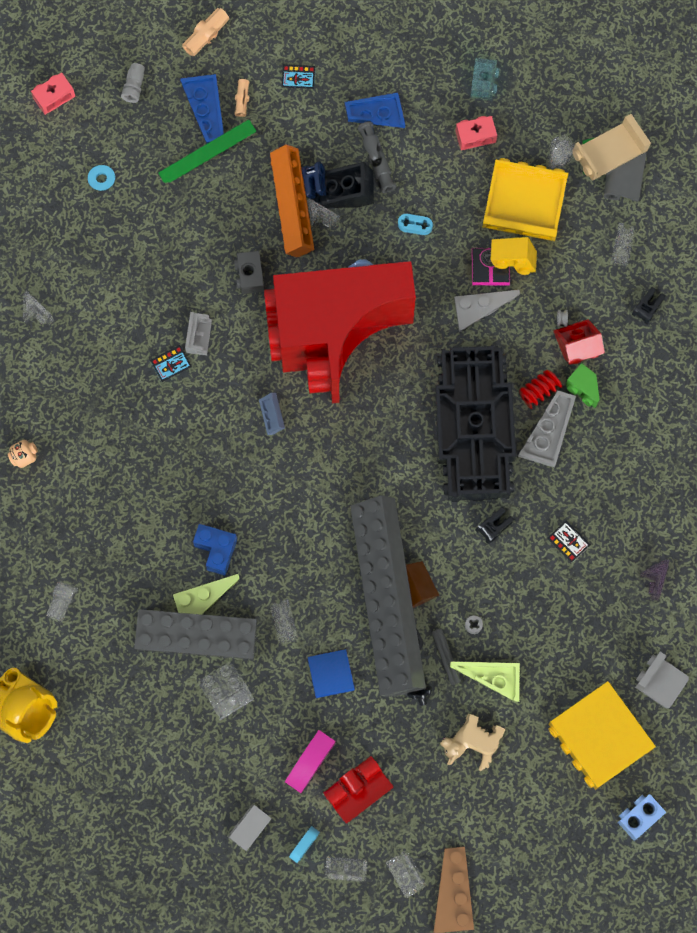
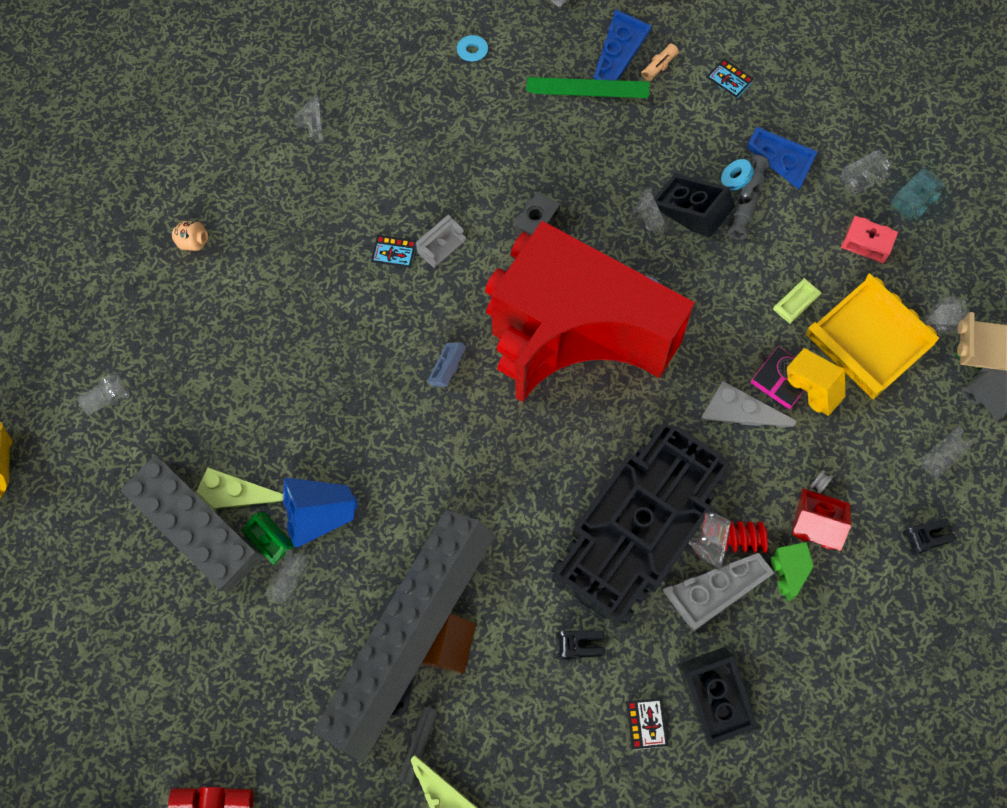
camera: 40 degrees right, 5 degrees down
(219, 543) = (287, 457): blue brick -> none
(225, 690) = (171, 602): clear bracket -> none
(249, 607) = (267, 537): none -> green slope
(249, 827) = (71, 763): light grey hinge -> none
(266, 566) = (316, 508): none -> blue slope
(292, 201) = (630, 181): orange brick -> none
(310, 761) = (189, 743): dark pink slope -> none
(314, 177) = (668, 176): dark blue piece -> none
(331, 673) = (287, 668): blue slope -> none
(365, 146) = (735, 167): none -> medium azure piece
(415, 226) = (737, 285): medium azure beam -> none
(421, 695) = (356, 766): black plant -> none
(439, 86) = (865, 173): none -> clear hinge
(460, 208) = (797, 301): none -> yellowish green tile
(473, 618) = (479, 727): light grey bush -> none
(526, 403) = (713, 539): none -> clear slope
(596, 493) = (717, 695): none -> black slope

